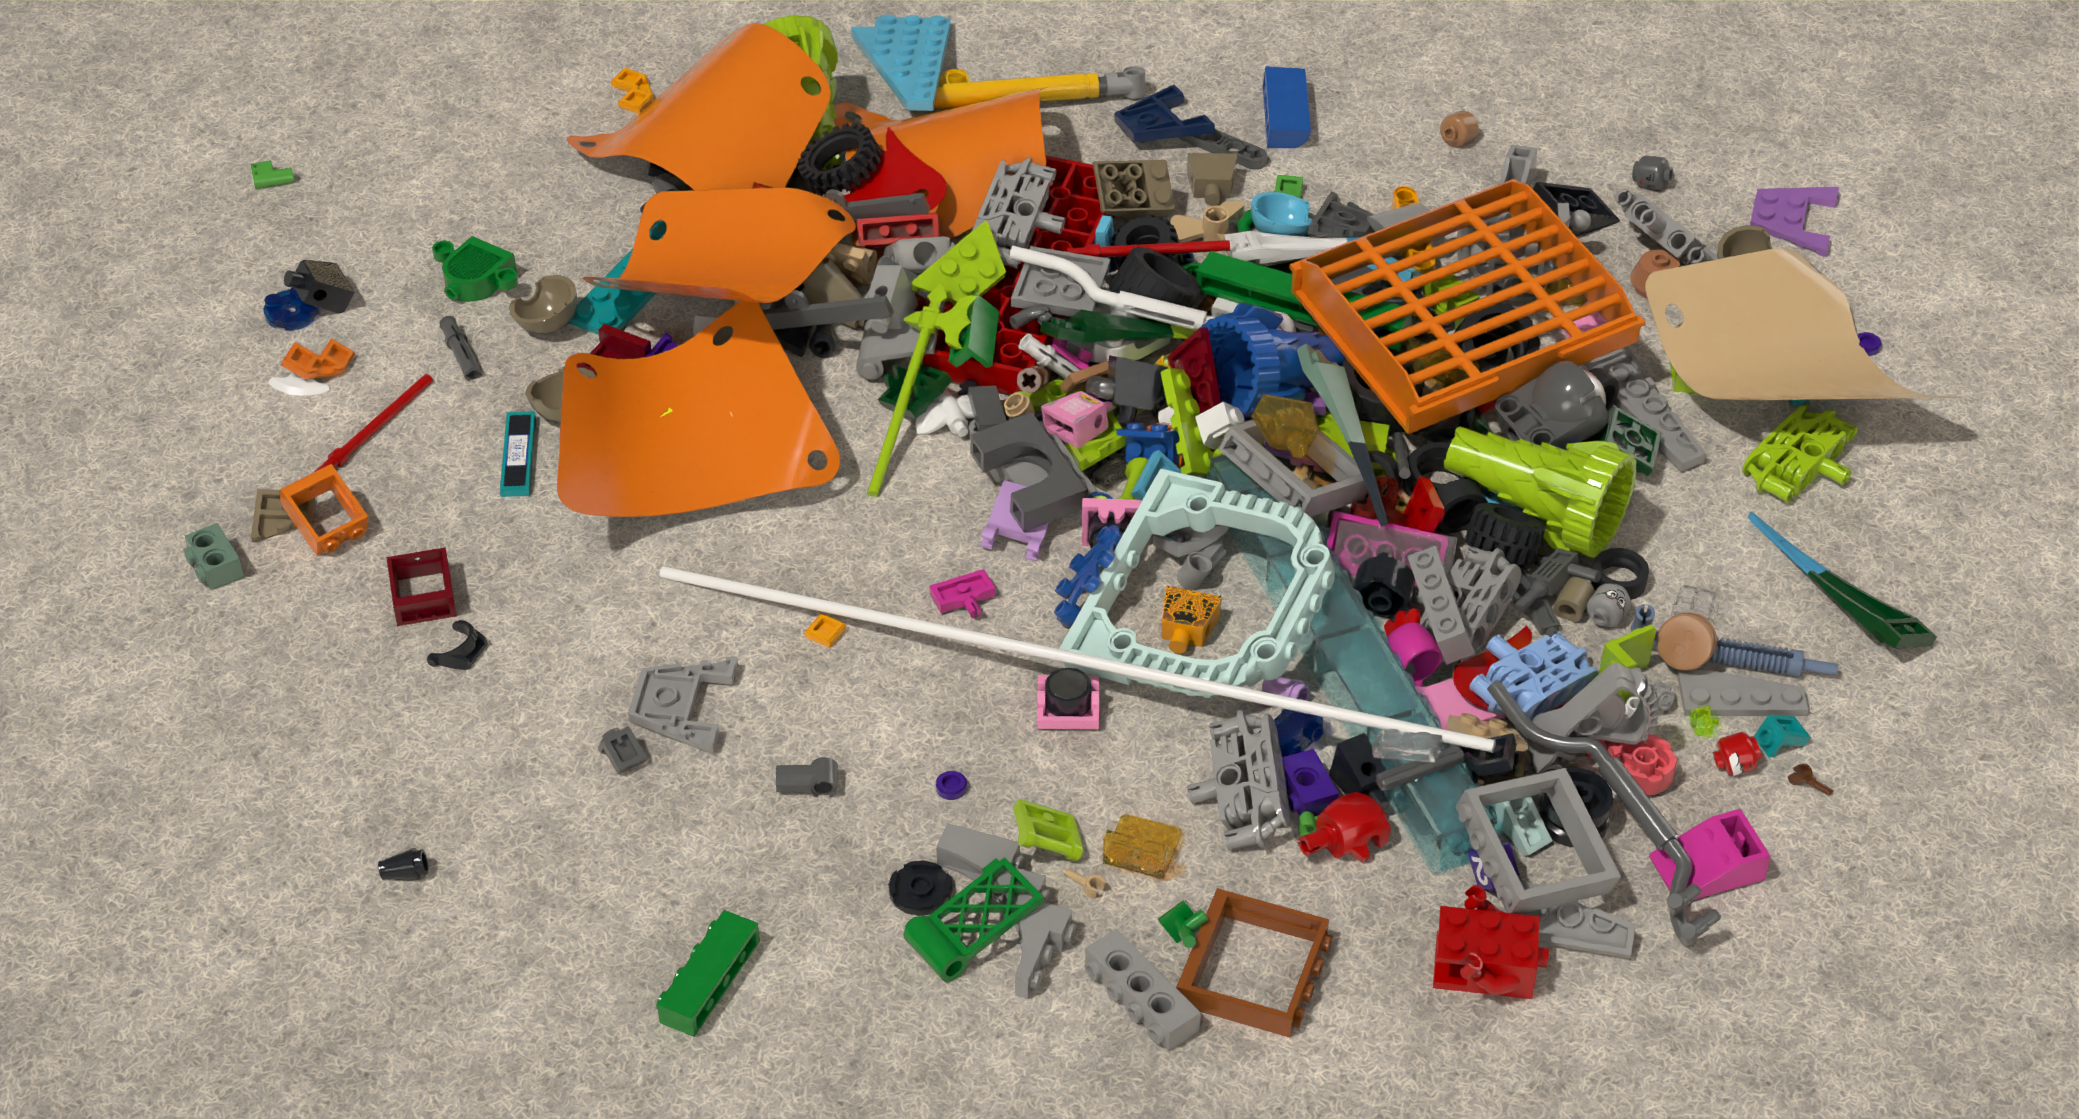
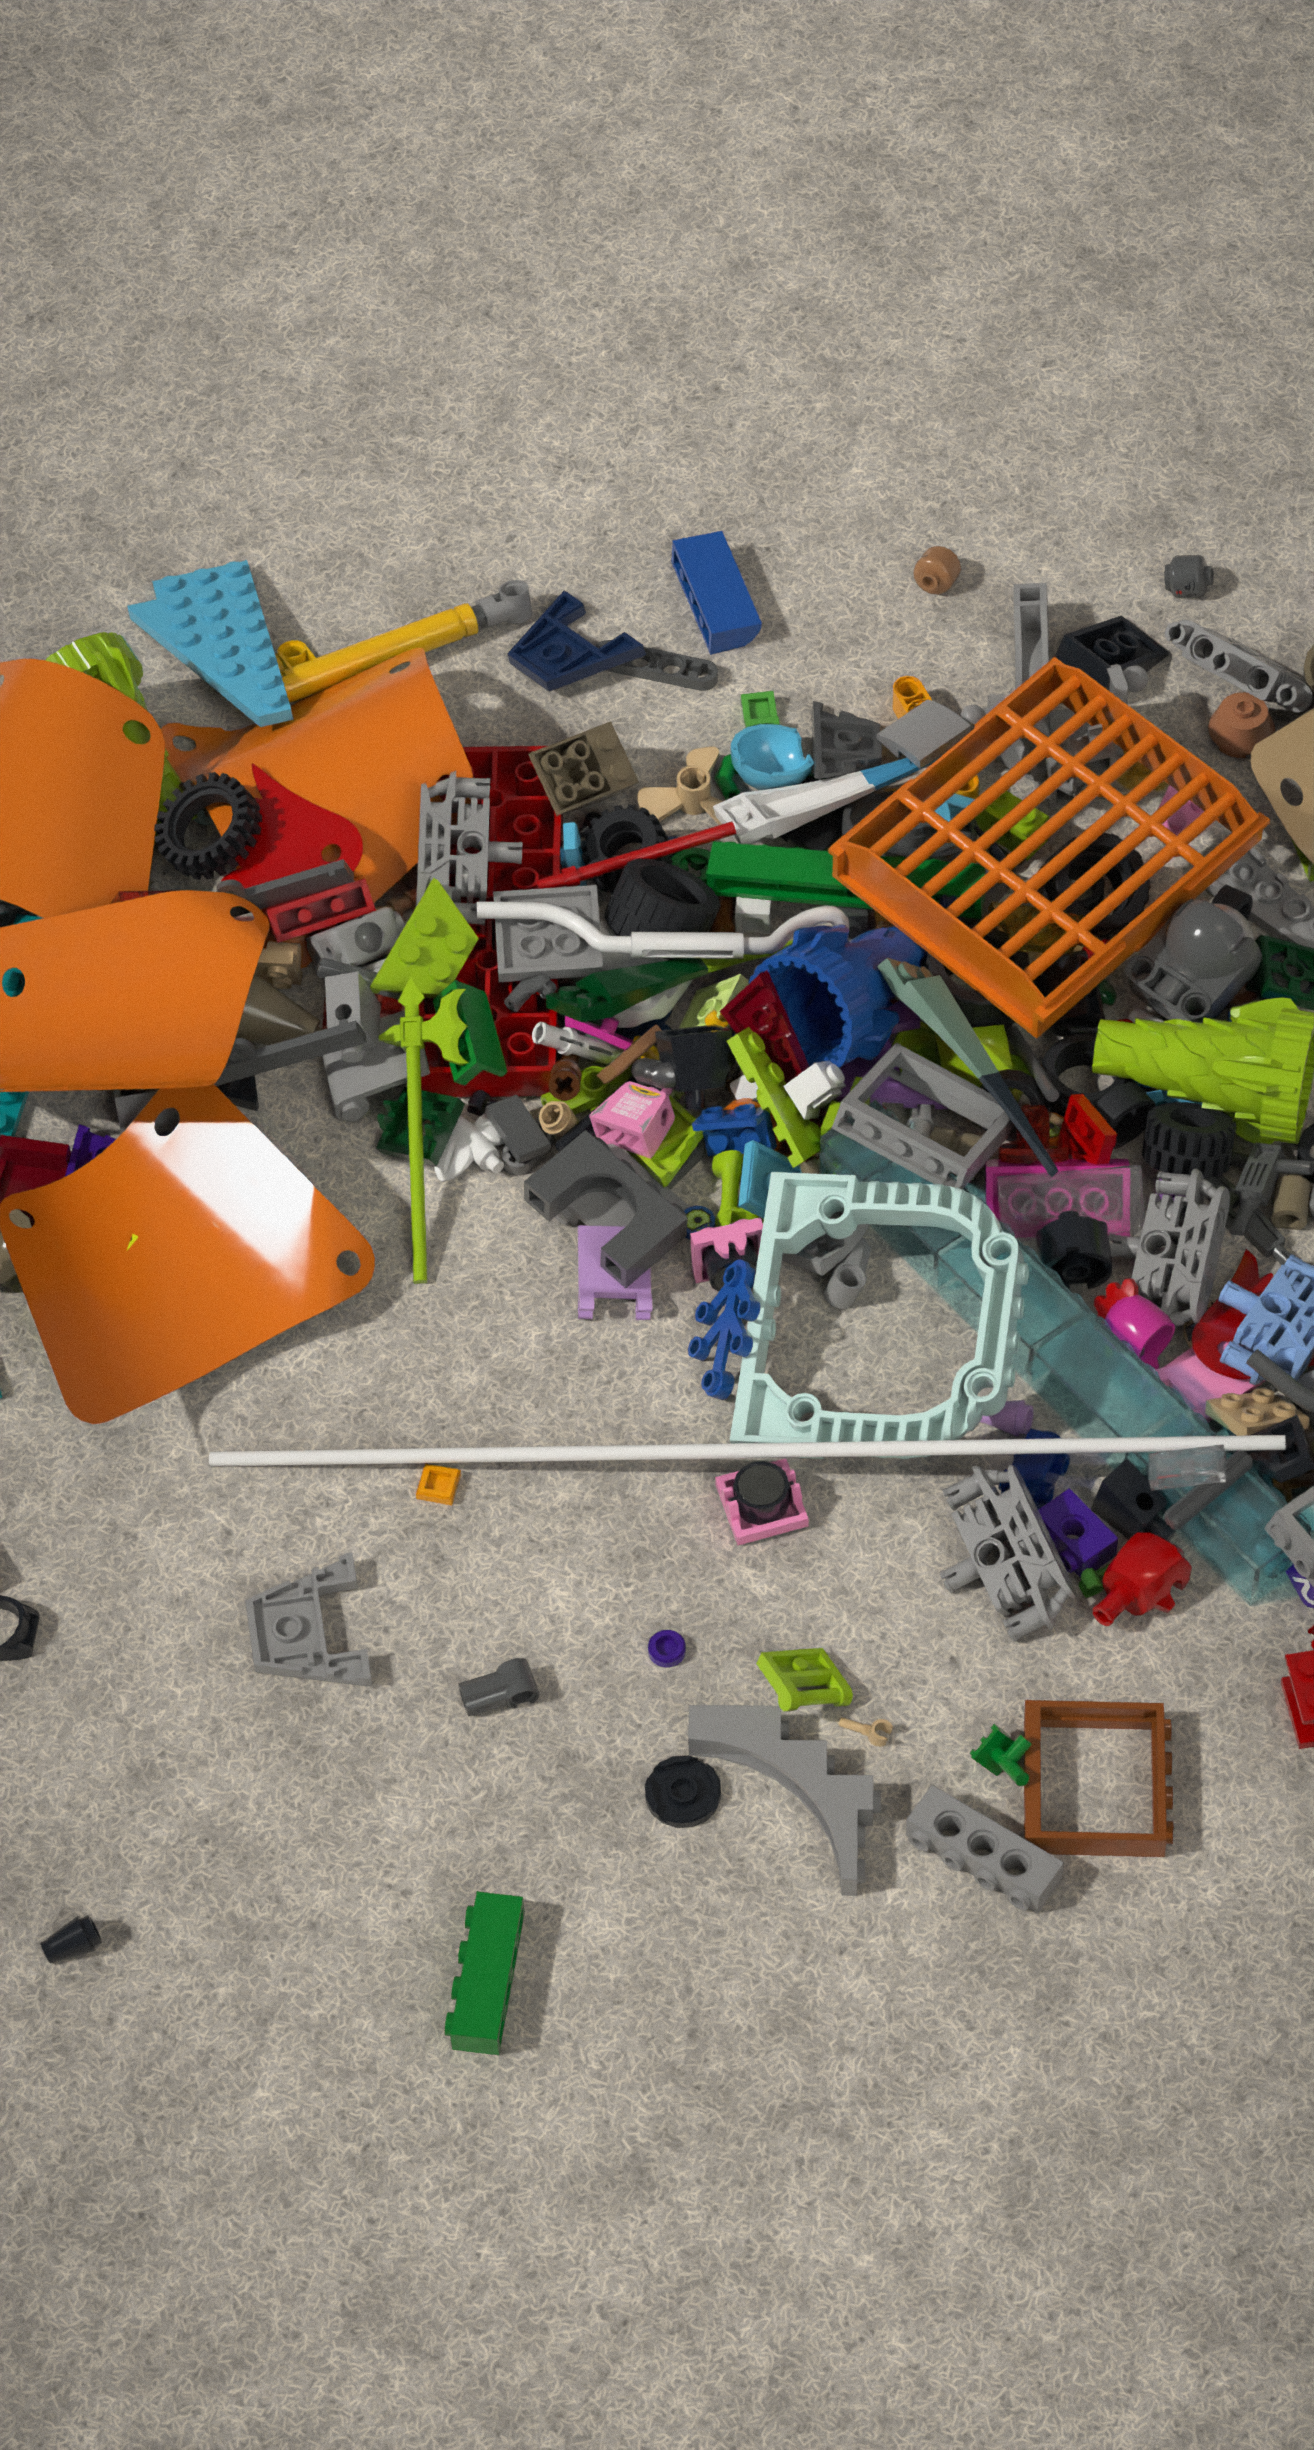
camera: 15 degrees left, 10 degrees up
(622, 749) = (265, 1713): dark grey bracket -> none
(822, 341) = (277, 1086): black cone -> none
(944, 949) = (739, 1862): green piece -> none
(963, 592) = (583, 1389): dark pink plate -> none
(1109, 474) = (694, 1178): clear smoke piece -> none
(1141, 845) = (916, 1664): clear yellow bracket -> none
(1188, 617) = (859, 1350): light orange torso -> none
(1211, 175) = (661, 717): dark tan torso -> none
(1286, 423) = (905, 1077): clear yellow torso -> none
(1441, 605) = (1154, 1263): light grey brick -> none

